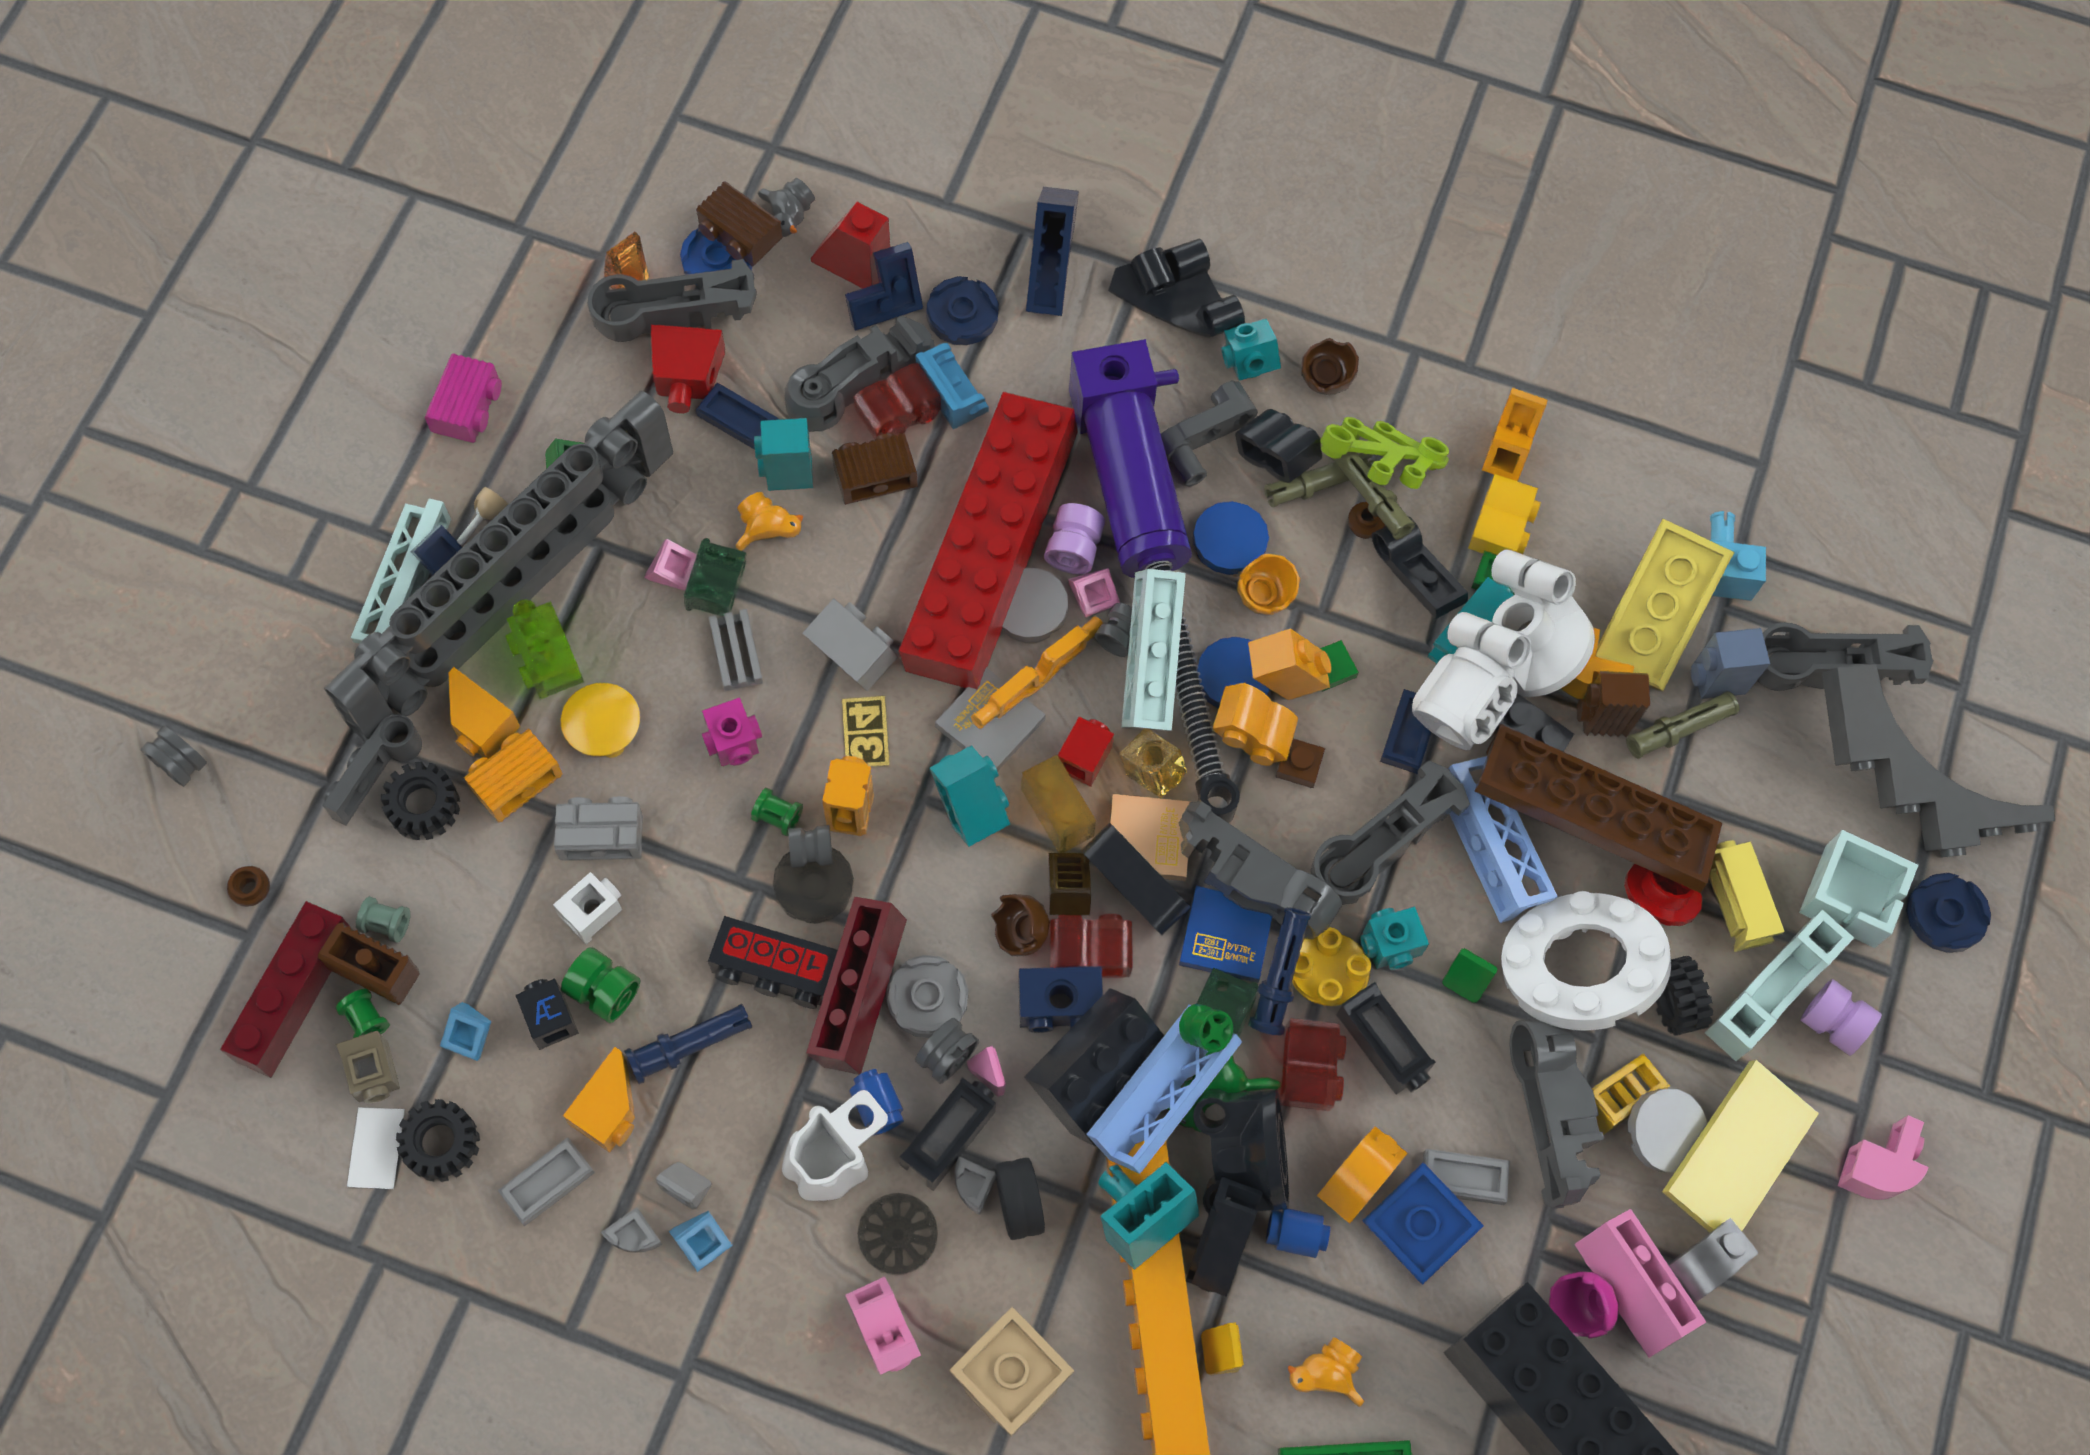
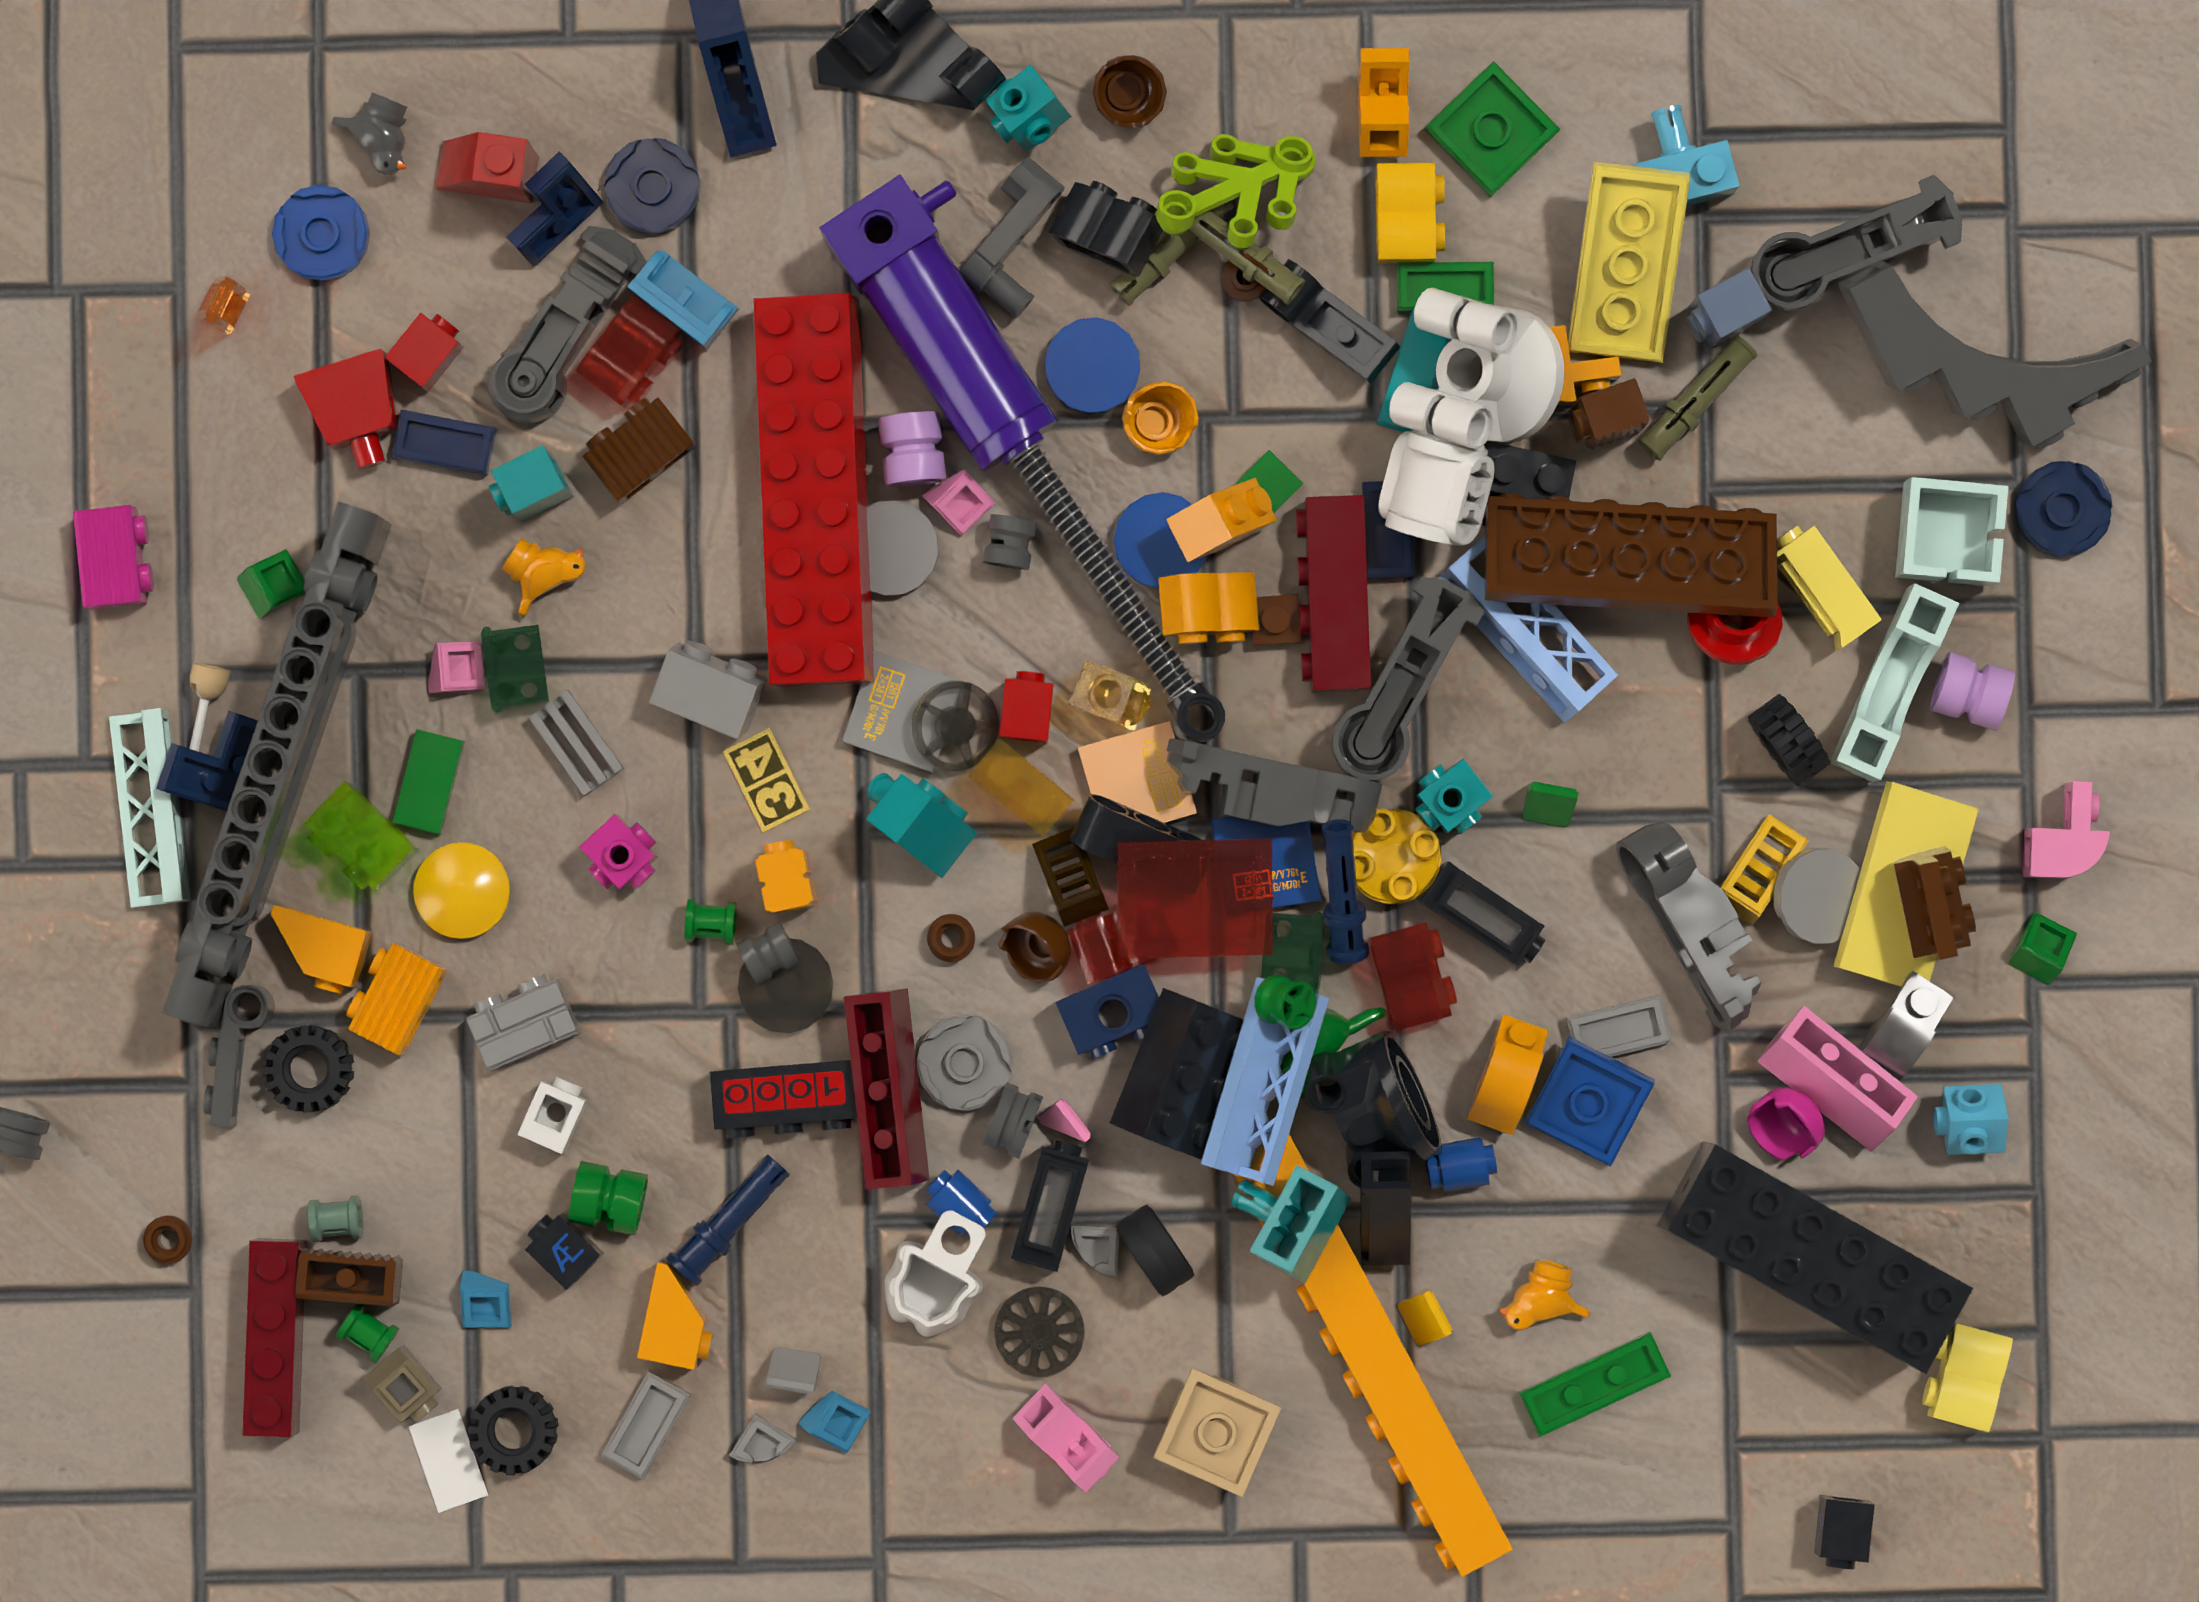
camera: 15 degrees left, 20 degrees up
(613, 635) = (428, 781): none -> green tile
(667, 303) = (300, 332): dark grey piece -> none
(738, 224) = (334, 191): reddish brown brick -> none
(752, 350) = (425, 350): none -> red brick
(952, 886) = (935, 933): none -> reddish brown plate
(1024, 740) = (955, 725): none -> clear smoke wheel
(1032, 679) = (936, 638): light orange piece -> none
(1153, 649) = (1060, 568): light aqua fence -> none
(1162, 929) = (1194, 898): none -> clear red piece
(1355, 758) = (1336, 593): none -> dark red brick
(1585, 491) = (1492, 129): none -> green tile
(1599, 1005) = (1706, 797): white plate -> none
(1745, 1363) = (1972, 1119): none -> medium azure brick
(1766, 1166) = (1933, 903): none -> reddish brown brick
(1839, 1249) = (2042, 948): none -> green slope

